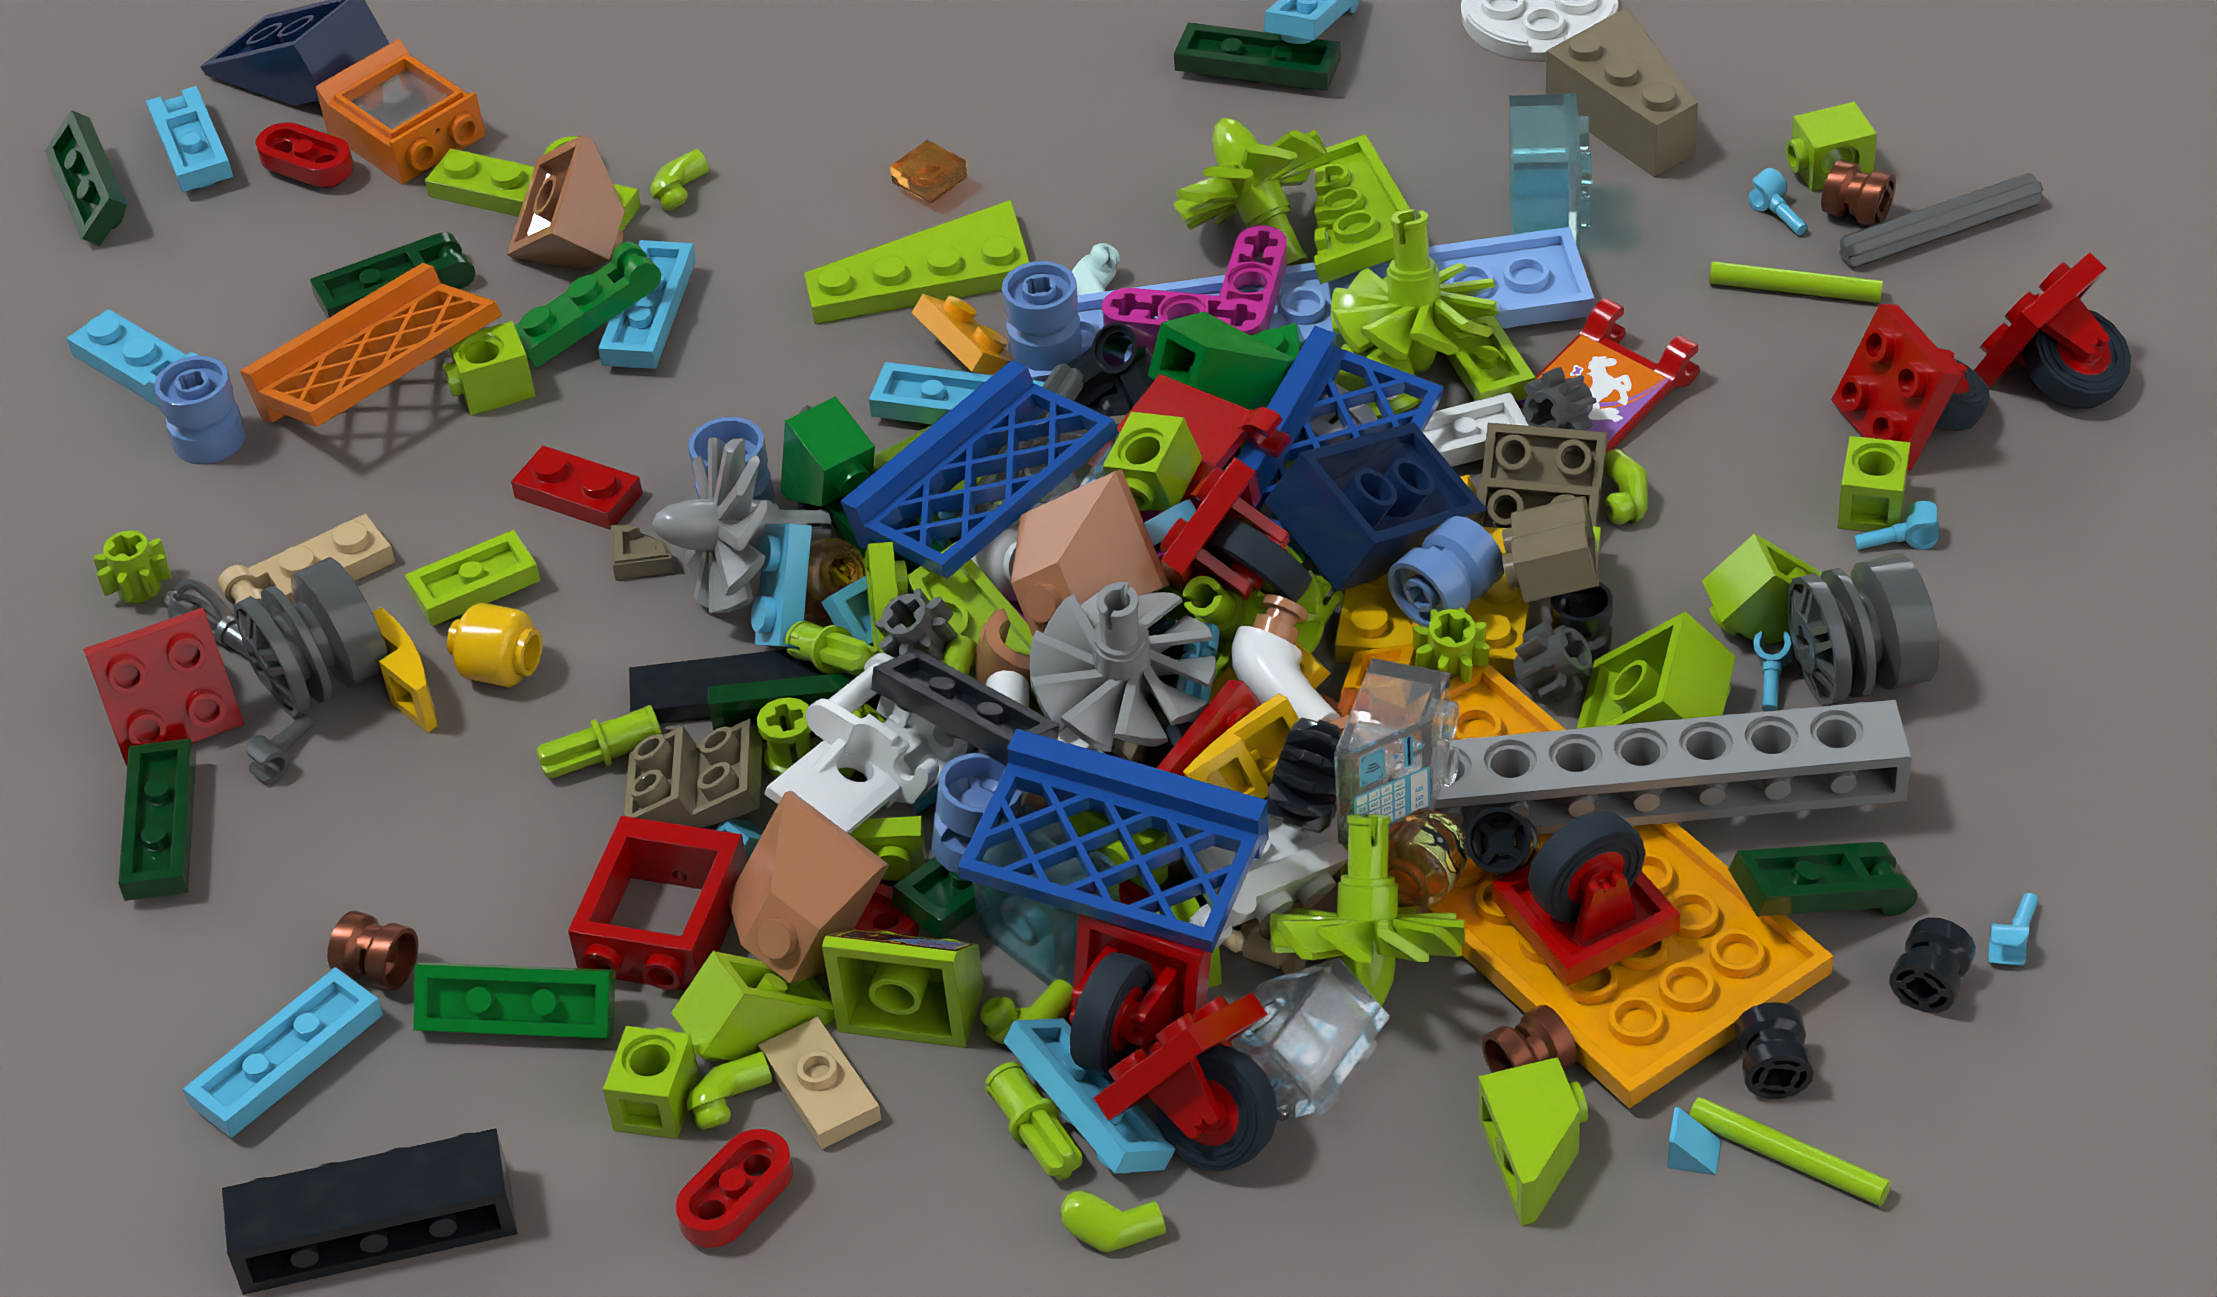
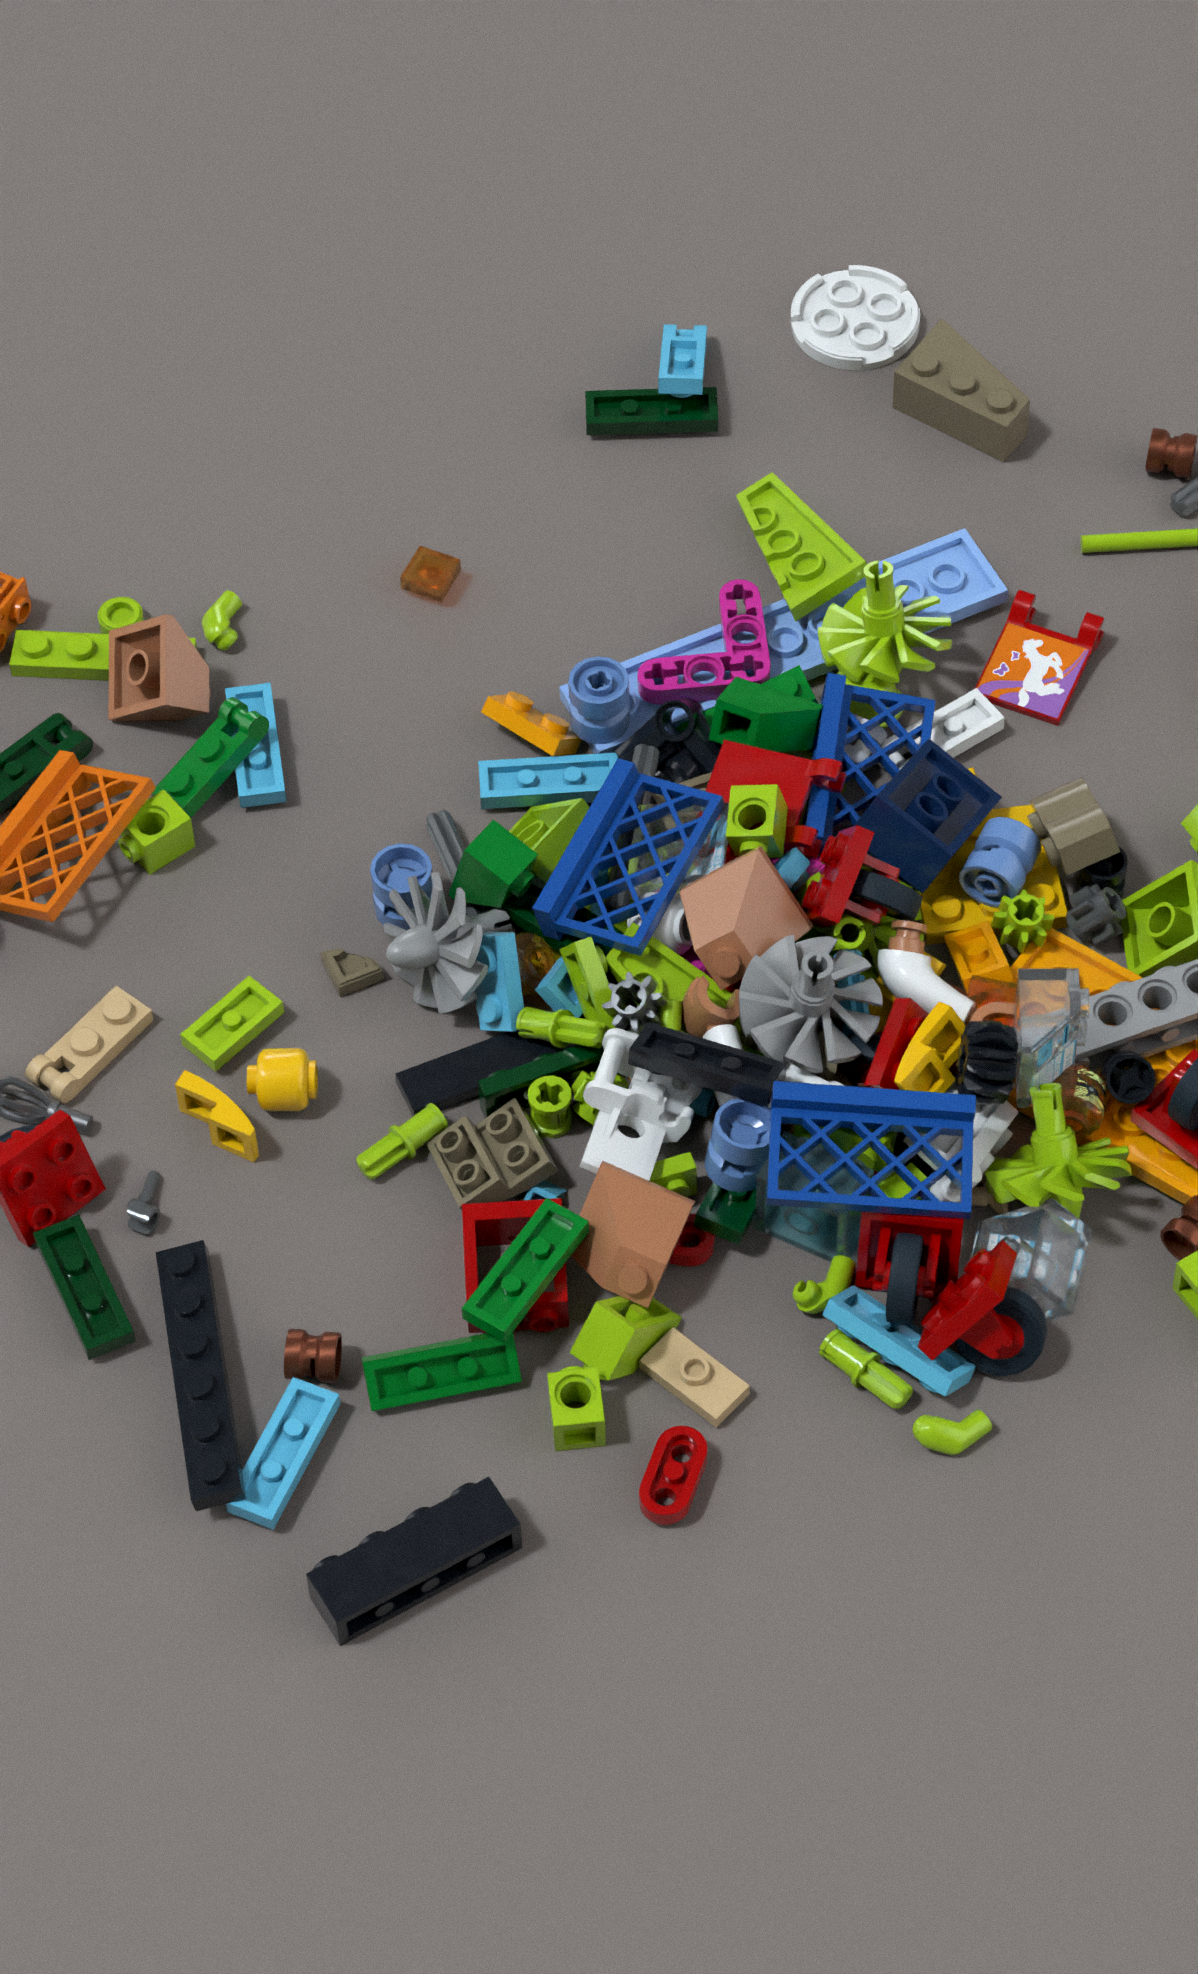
camera: 20 degrees left, 10 degrees up
(230, 945) = (200, 1376): none -> black plate
(299, 642) = (142, 1108): dark grey wheel -> none
(577, 487) = (273, 923): red plate -> none
(648, 898) = (525, 1270): none -> green plate
(723, 1082) = (624, 1399): lime arm -> none
(903, 986) = (732, 1288): lime slope -> none
(942, 261) = (469, 659): lime wing -> none
(1096, 269) = (605, 639): light aqua arm -> none
(1251, 181) = (711, 541): lime piece -> none
(1489, 364) = (956, 668): lime plate -> none
(1537, 468) = (1026, 756): dark tan slope -> none
(1548, 164) = (933, 481): clear light blue brick -> none
(1558, 402) = (1019, 694): dark grey gear -> none
(1633, 488) = (1094, 745): lime arm -> none
(1768, 193) = (1099, 465): medium azure hand -> none
(1826, 137) = (1134, 412): lime brick -> none

